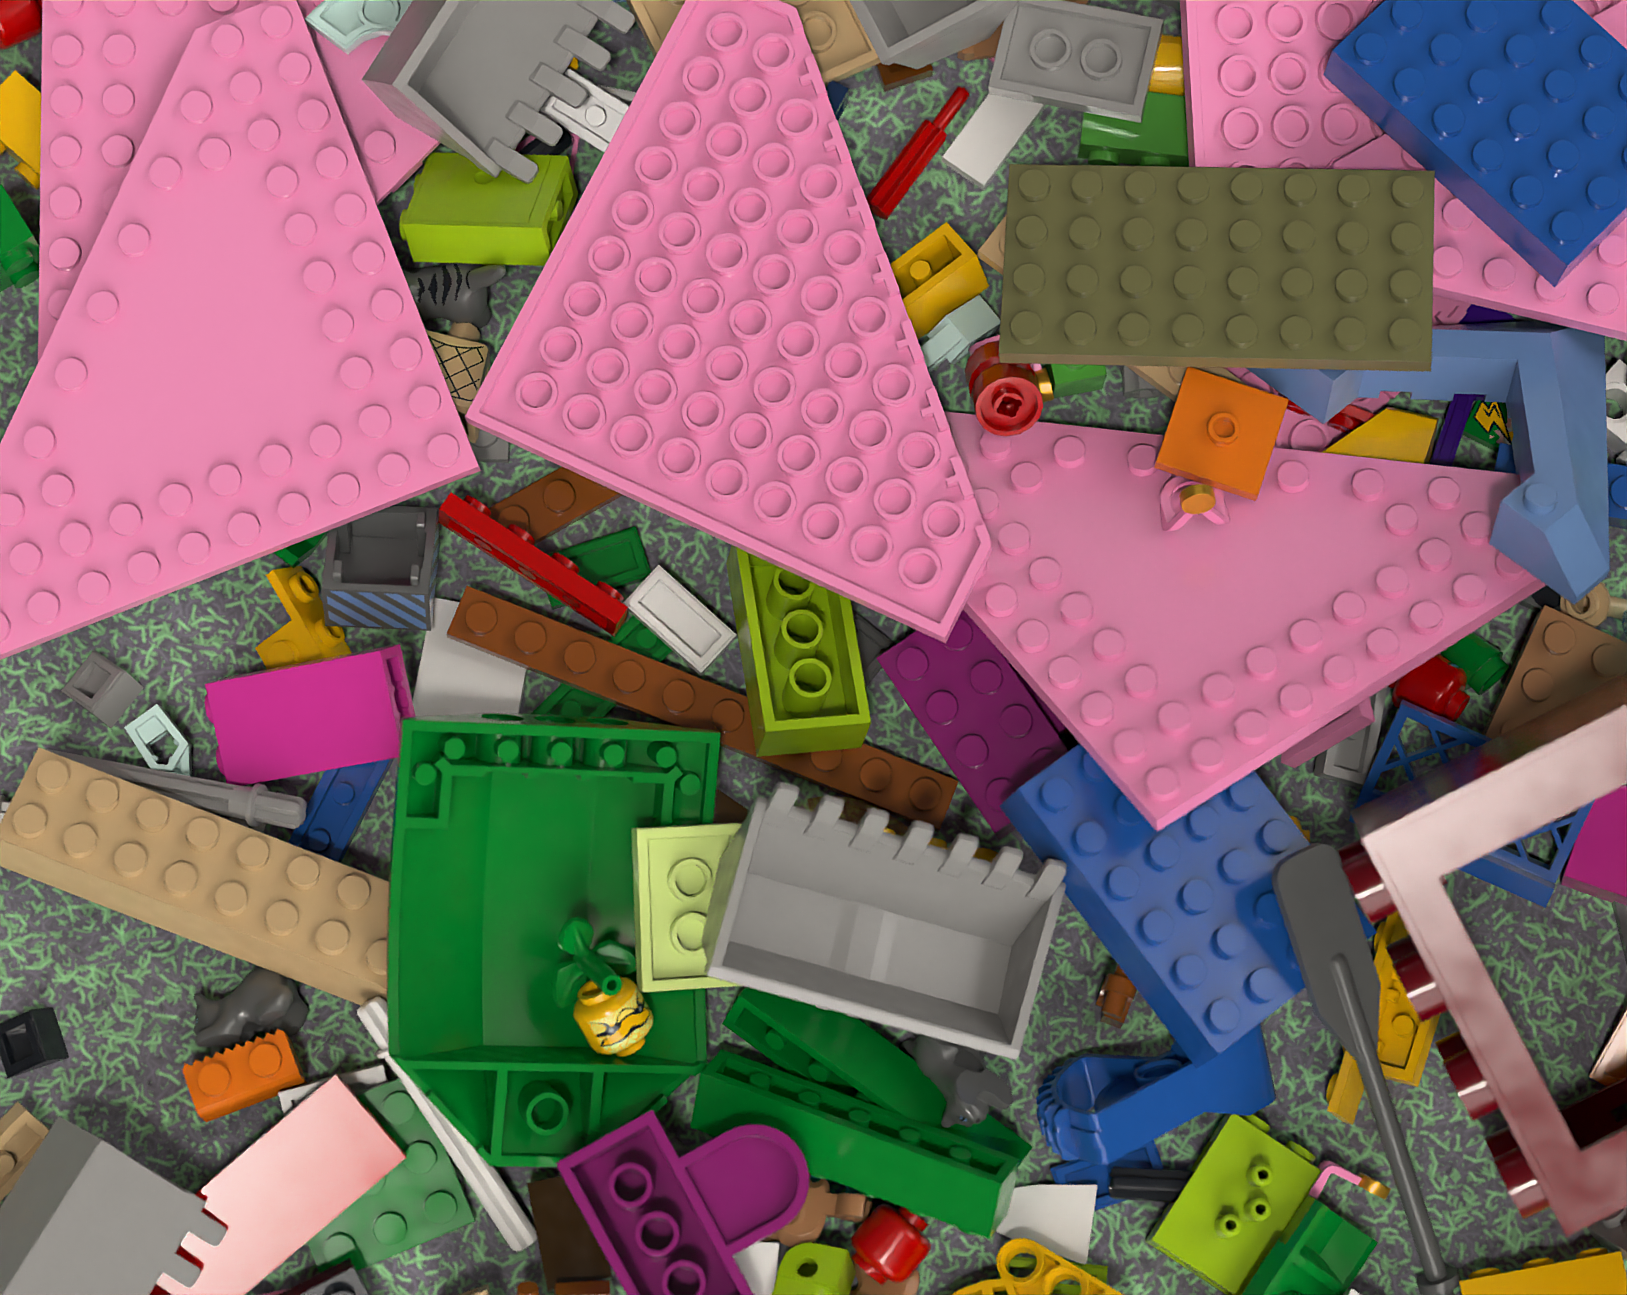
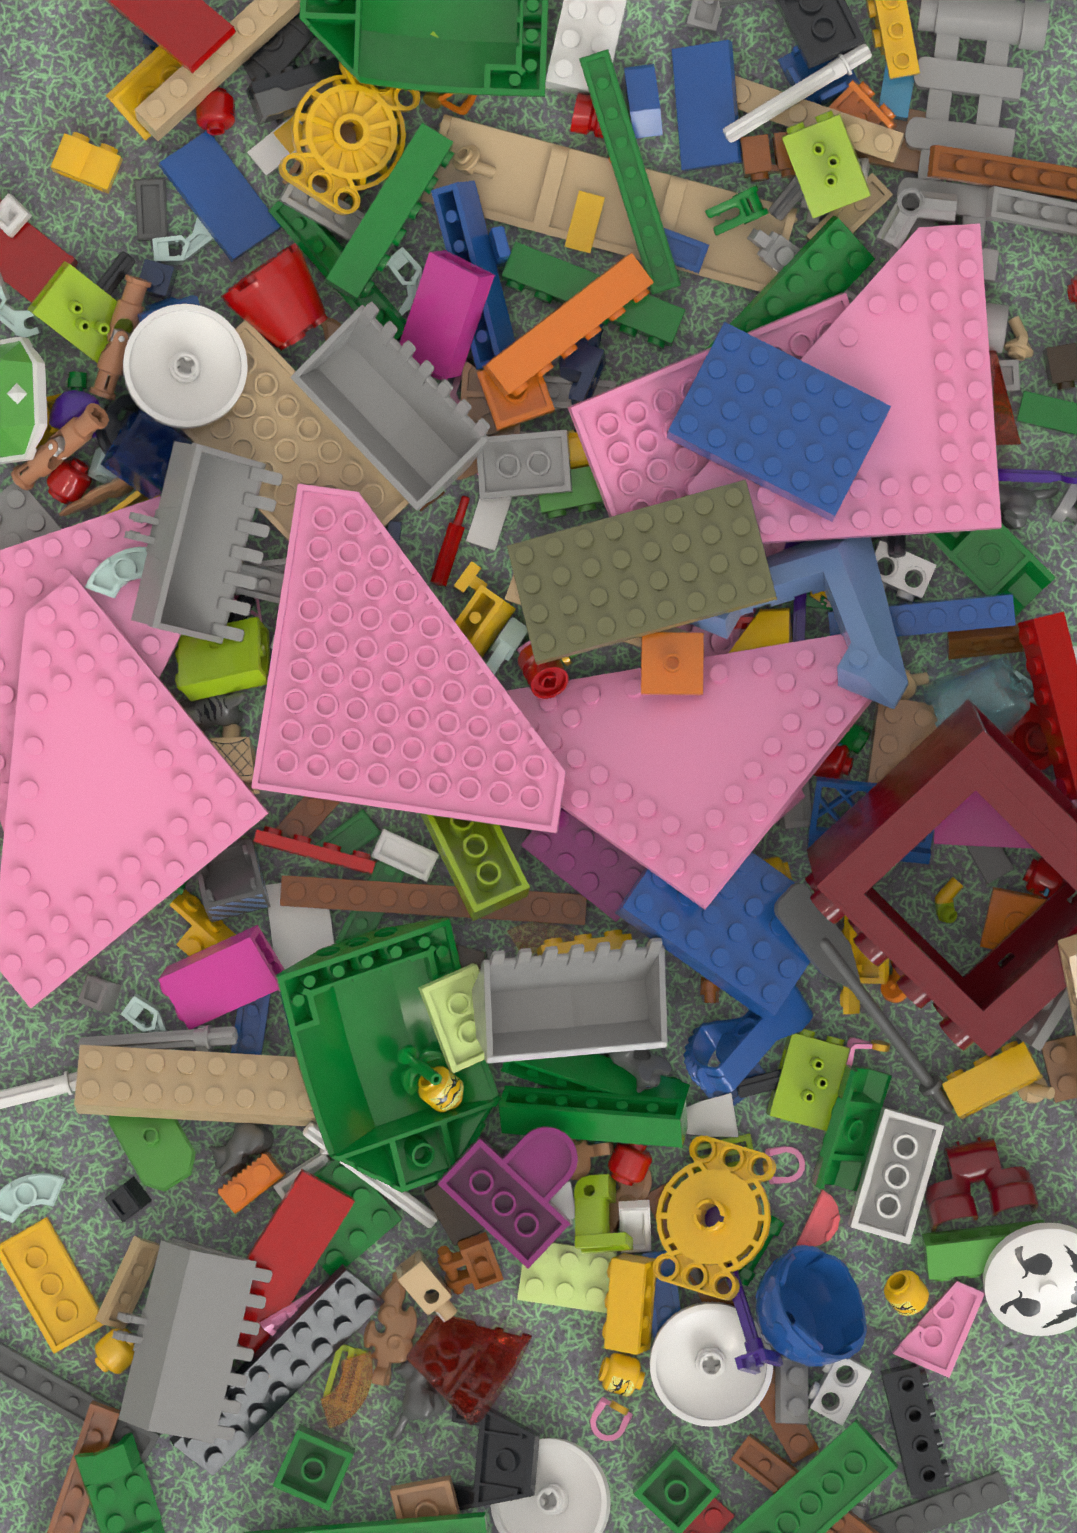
camera: 10 degrees left, 10 degrees up
(103, 965) = (155, 1149): none -> bright green shield
(927, 213) = (469, 579): none -> yellow tile
(1193, 500) = (669, 711): bright pink piece -> none
(1429, 1097) = (891, 991): none -> orange piece
(1551, 982) = (944, 901): none -> arm

